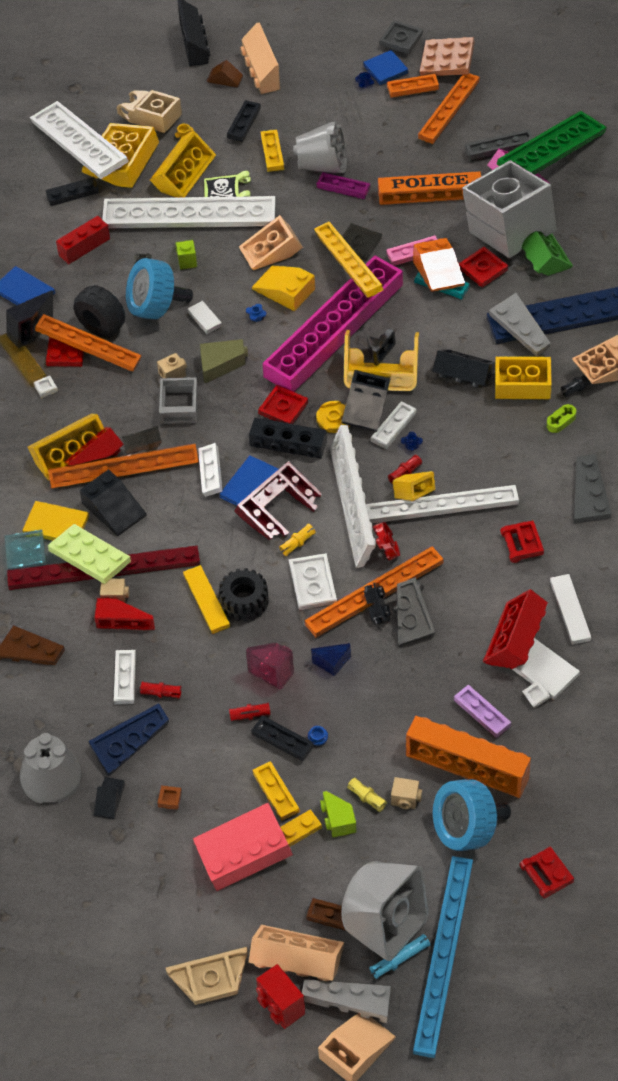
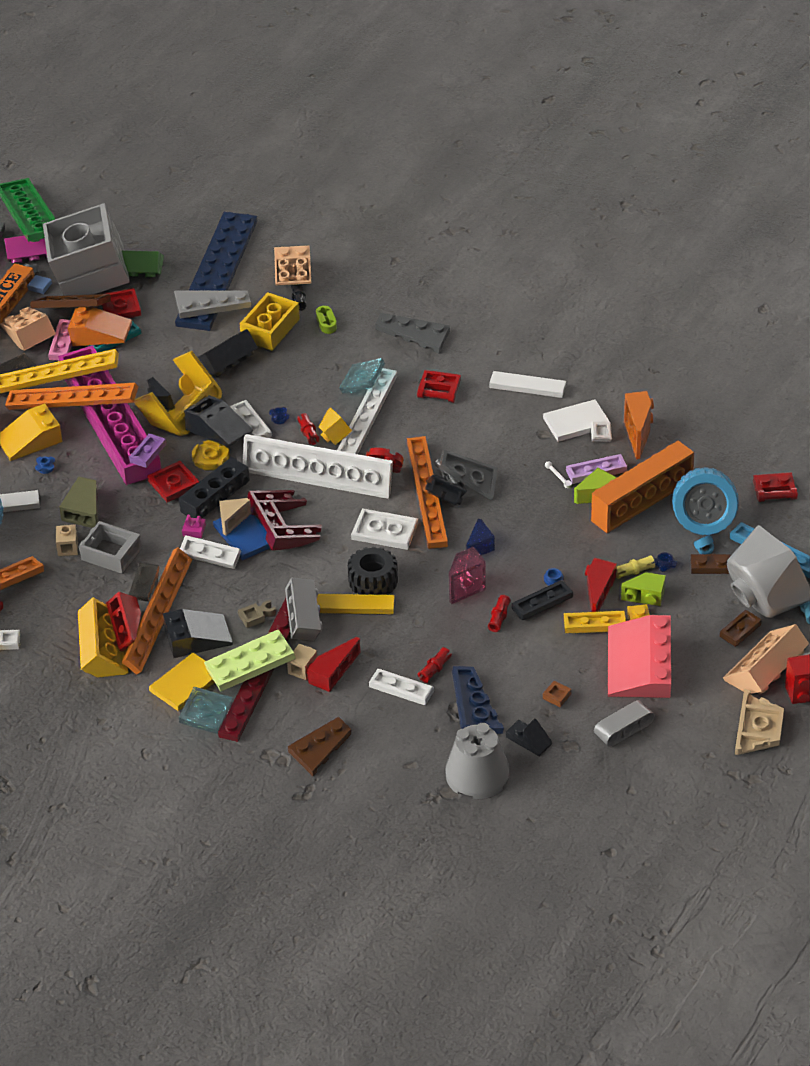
camera: 65 degrees left, 10 degrees down
(154, 533) = (255, 615): none -> dark tan plate
(157, 865) = (624, 723): none -> light grey beam
(168, 564) = (303, 609): none -> light grey brick
(238, 445) = (194, 527): none -> dark pink tile
(255, 462) = (233, 513): none -> tan slope
(286, 367) = (147, 450): none -> medium lavender plate
(297, 539) = (333, 521): yellow pin -> none
(327, 288) = (72, 396): none -> orange plate
(327, 773) = (600, 579): none -> red slope
(387, 812) = (665, 561): none -> clear blue plate
(405, 793) = (649, 540): tan brick -> none
(406, 852) = (709, 563): none -> reddish brown plate
(410, 220) = (28, 328): none -> light nougat slope
(429, 839) = (707, 540): none -> dark azure tile
(453, 716) = (594, 481): none -> lime slope
(455, 231) = (70, 301): none -> reddish brown tile
(468, 671) = (567, 484): none -> white hinge
(493, 477) = (362, 376): none -> clear light blue plate
(516, 631) = (532, 418): red slope -> none
(556, 718) = (638, 419): none -> orange slope

